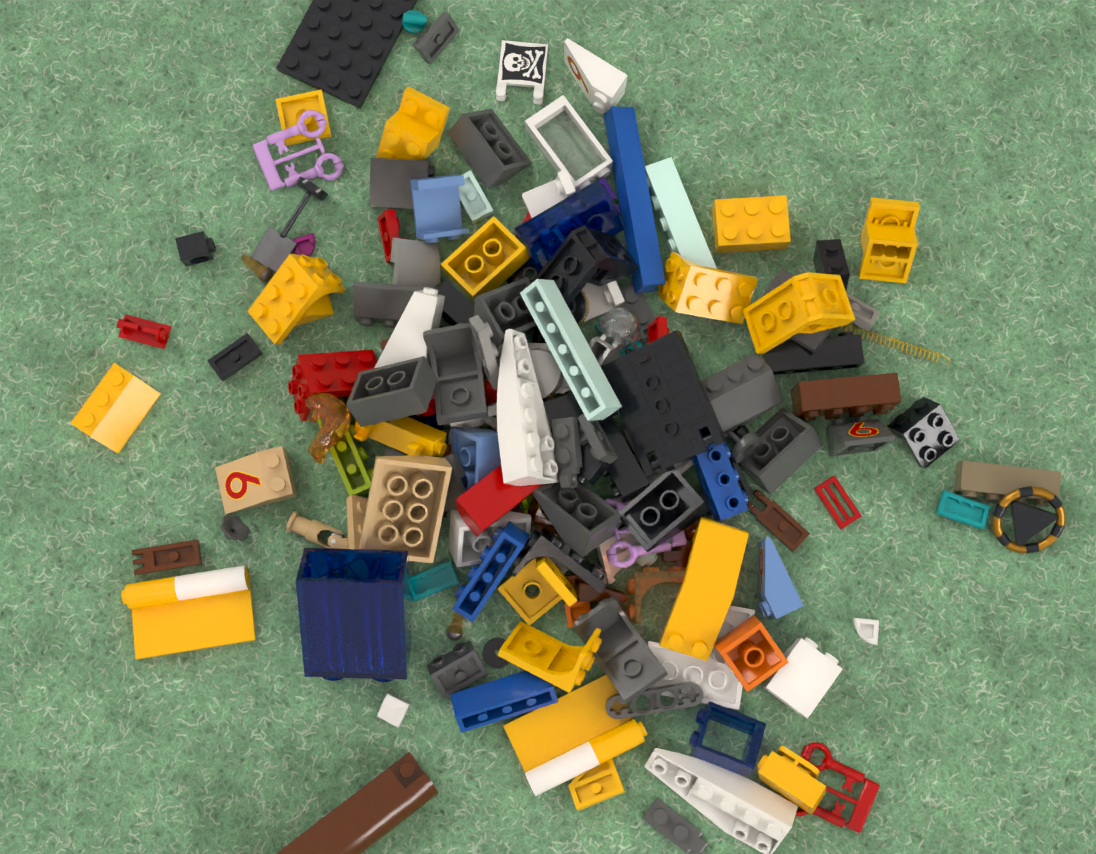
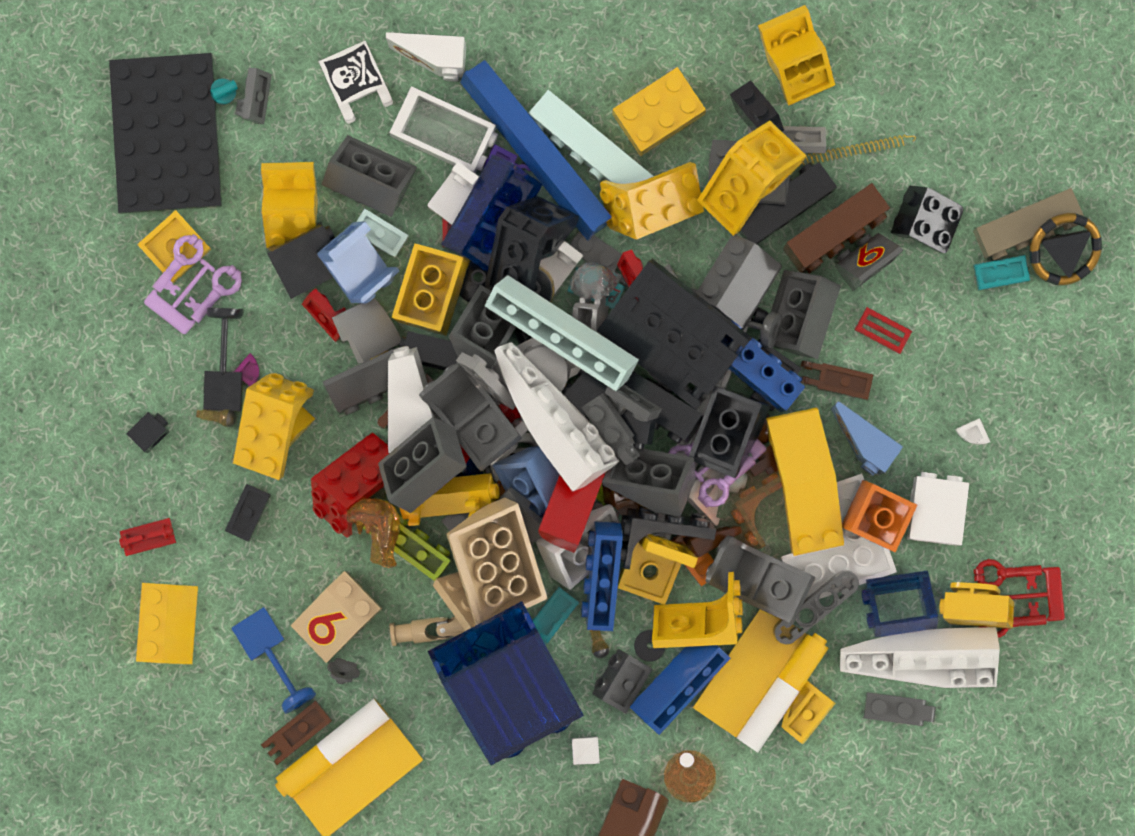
camera: 25 degrees left, 5 degrees up
(183, 461) = (257, 637): none -> blue piece
(467, 782) = (689, 776): none -> clear orange tile

